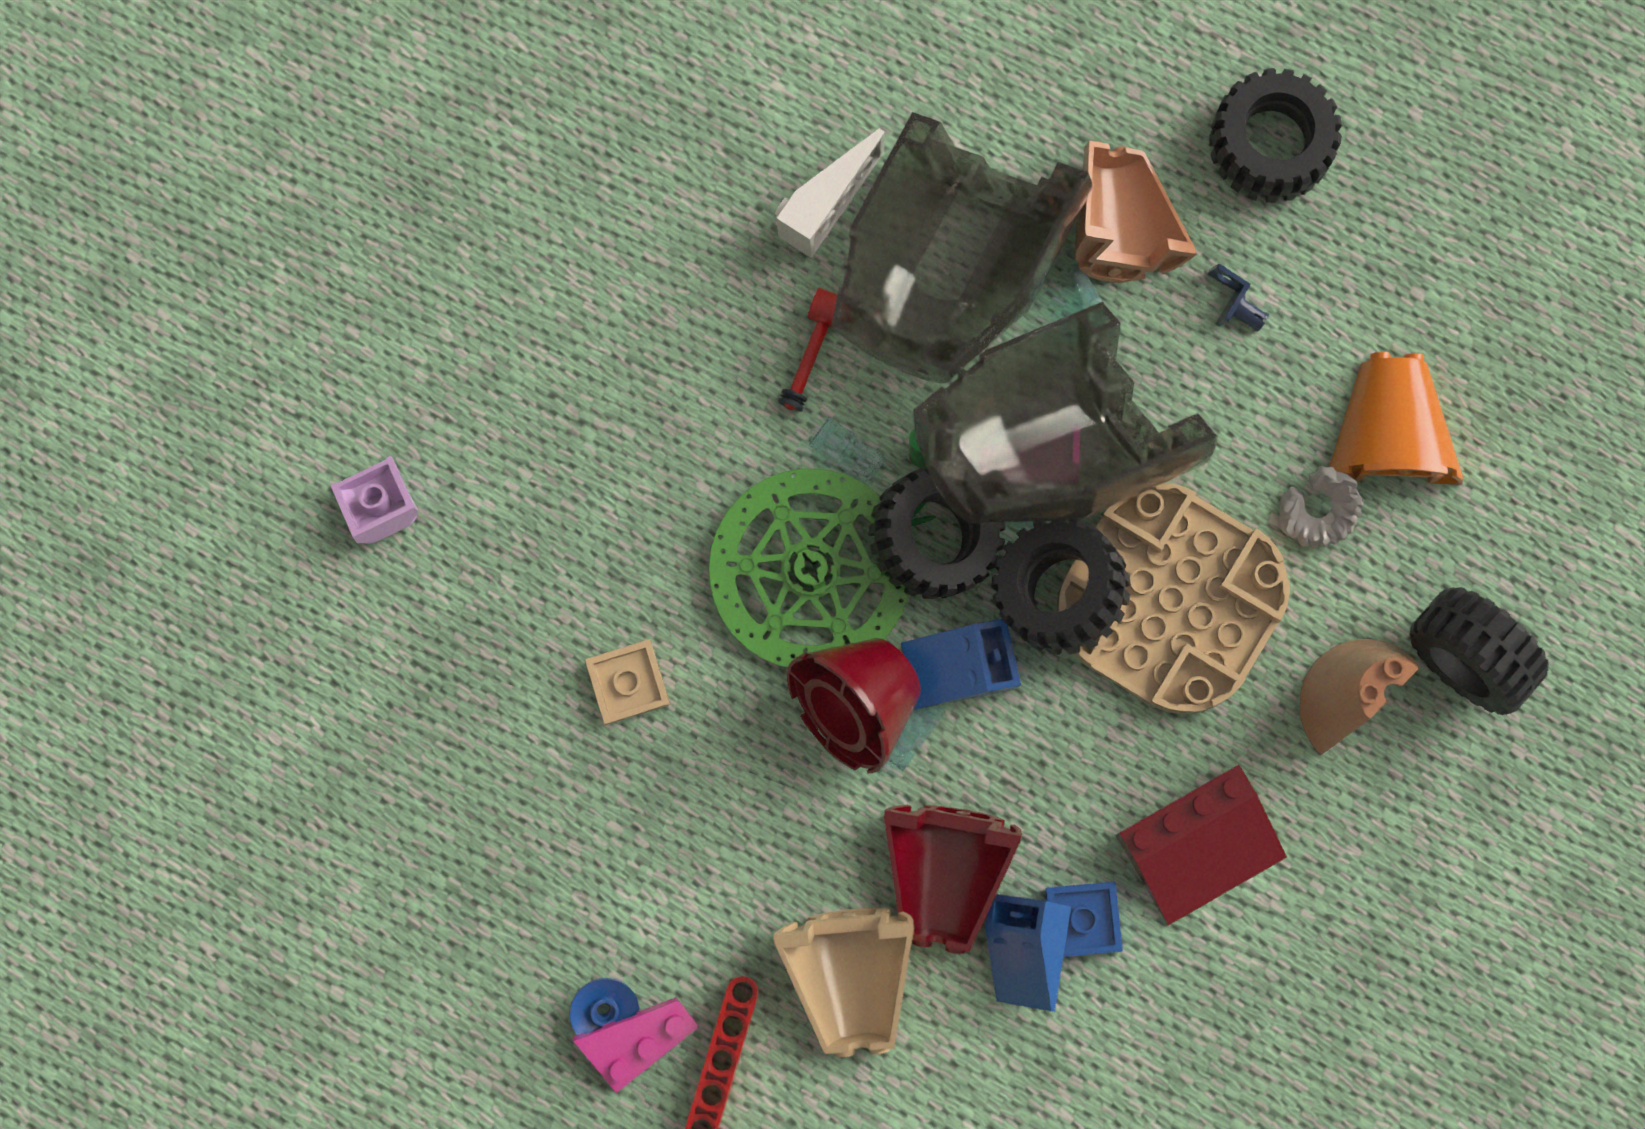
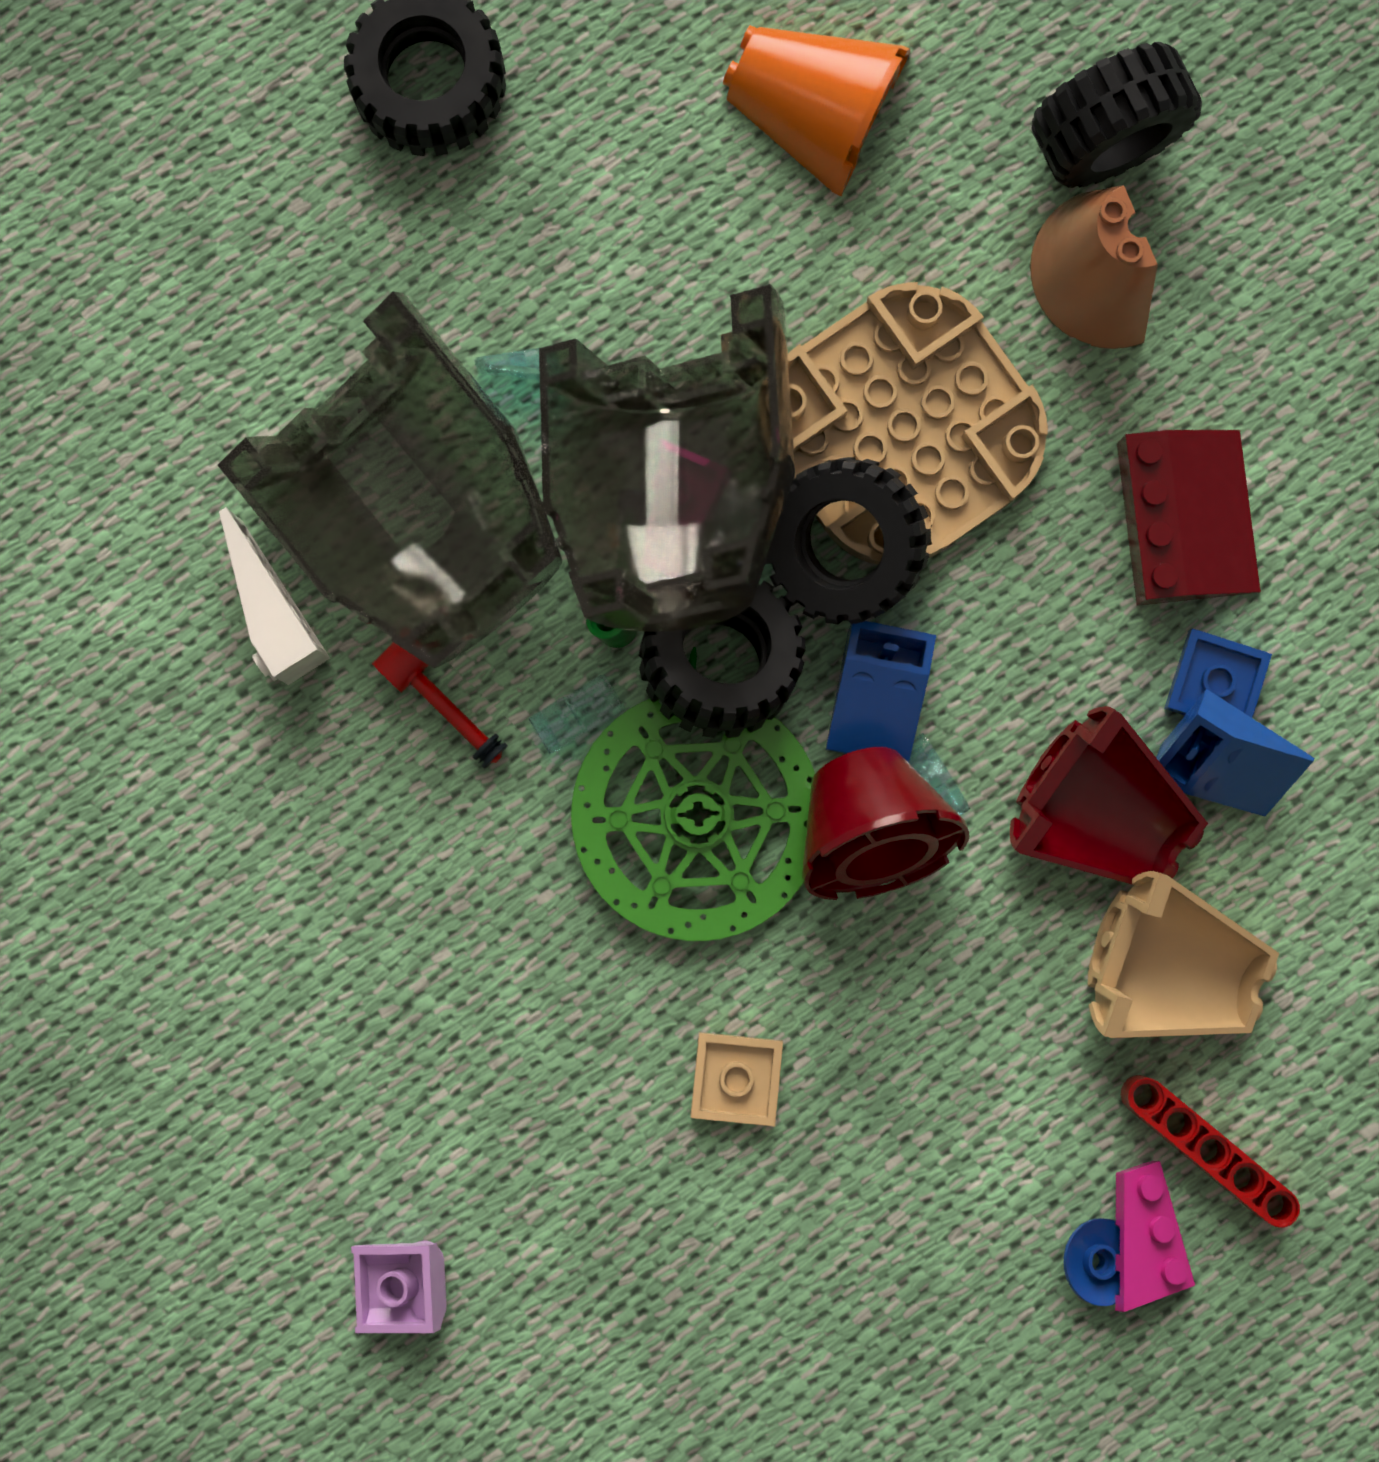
camera: 70 degrees left, 5 degrees up
(1127, 219) = (452, 272): nougat cone -> none
(1237, 304) = (600, 203): dark blue bracket -> none
(1334, 526) = (900, 210): light grey piece -> none

